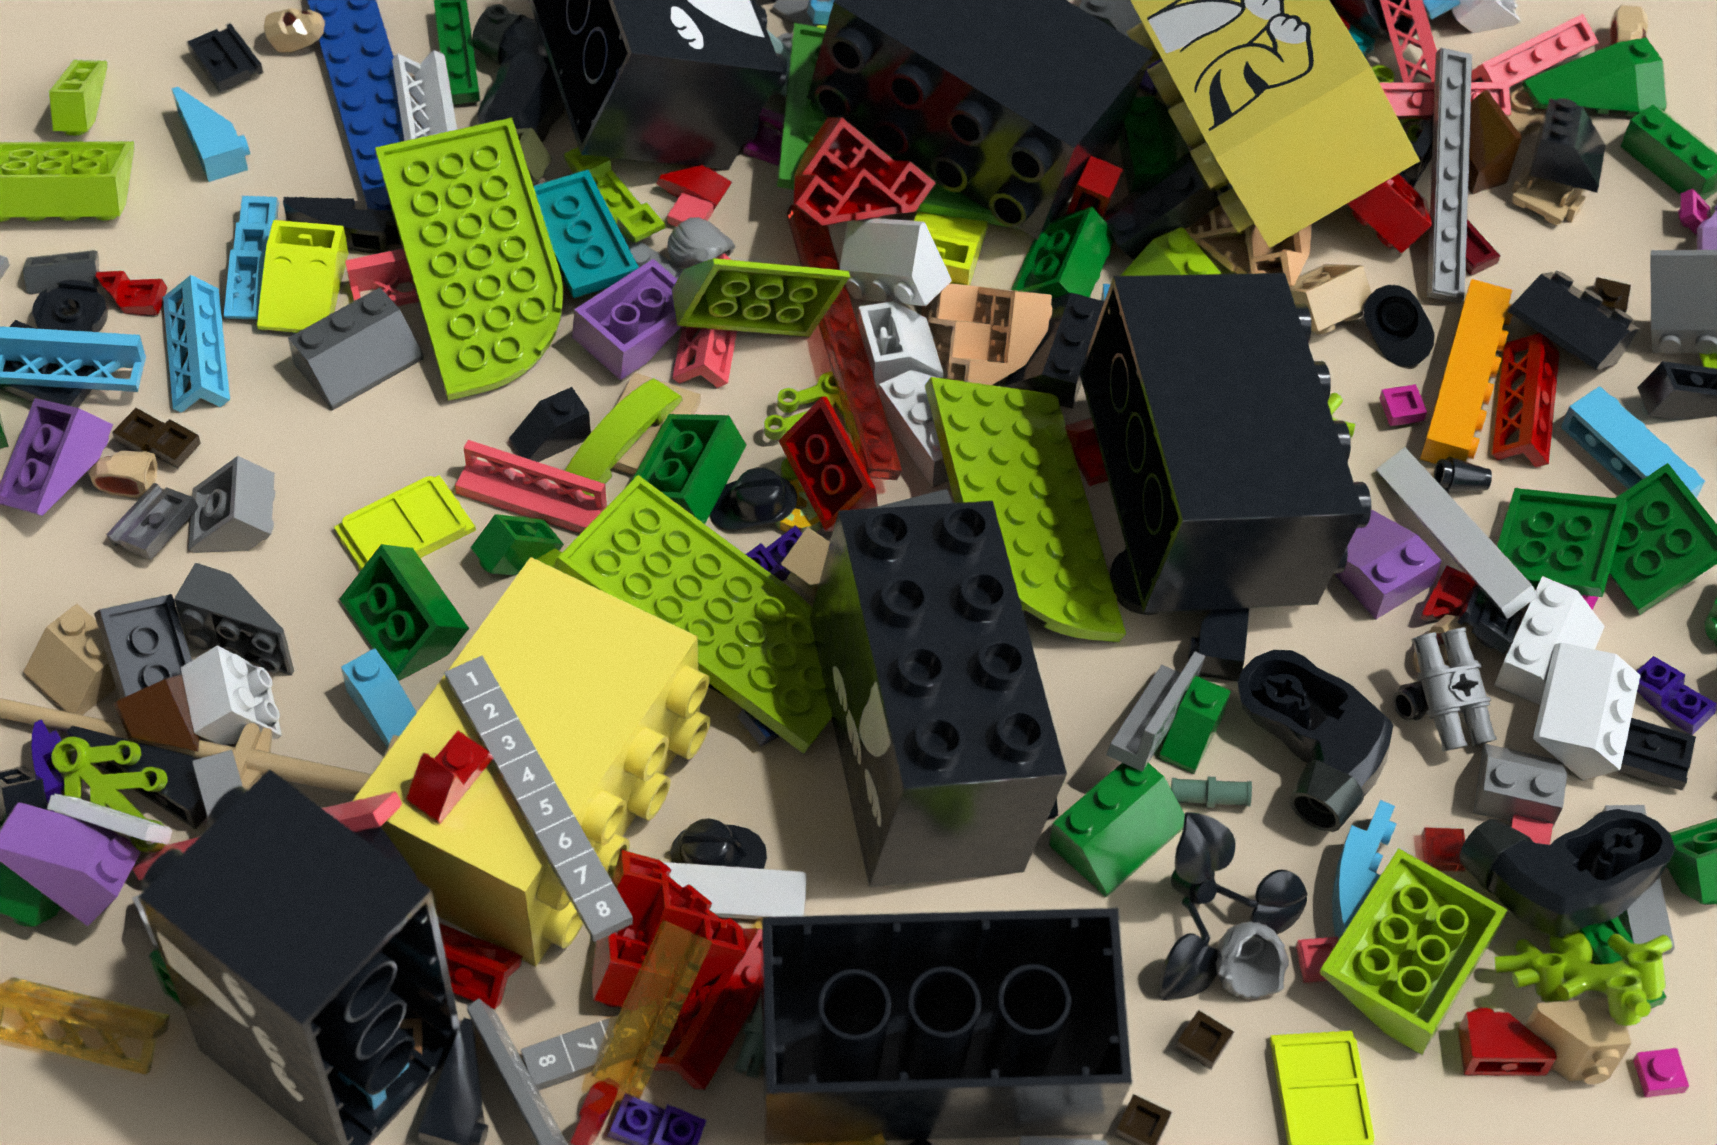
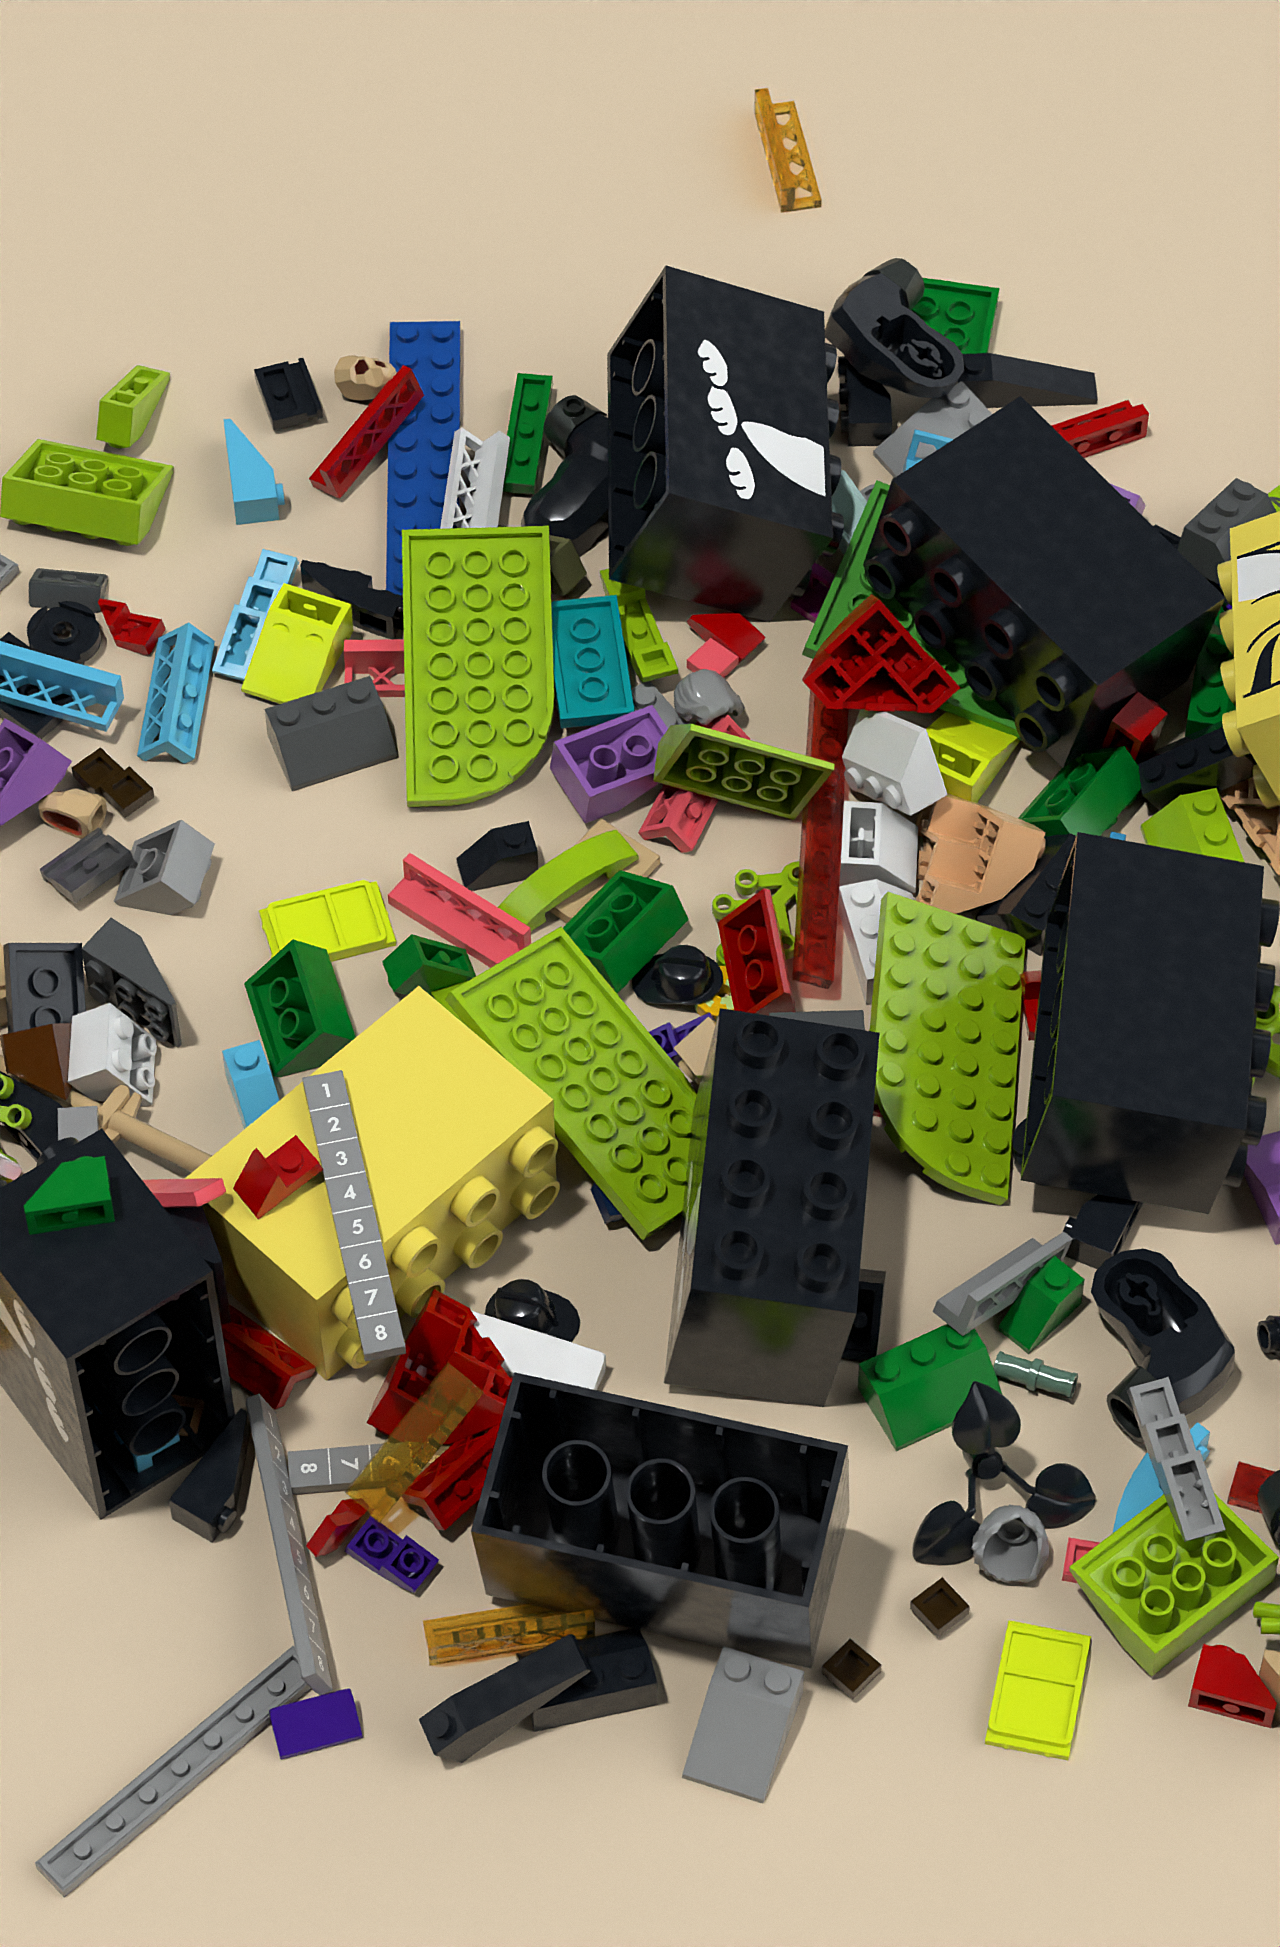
camera: 20 degrees right, 0 degrees up
(261, 849) = (72, 1197): none -> green slope
(311, 76) = (368, 434): none -> red fence
(1382, 842) = (1175, 1460): none -> light grey slope

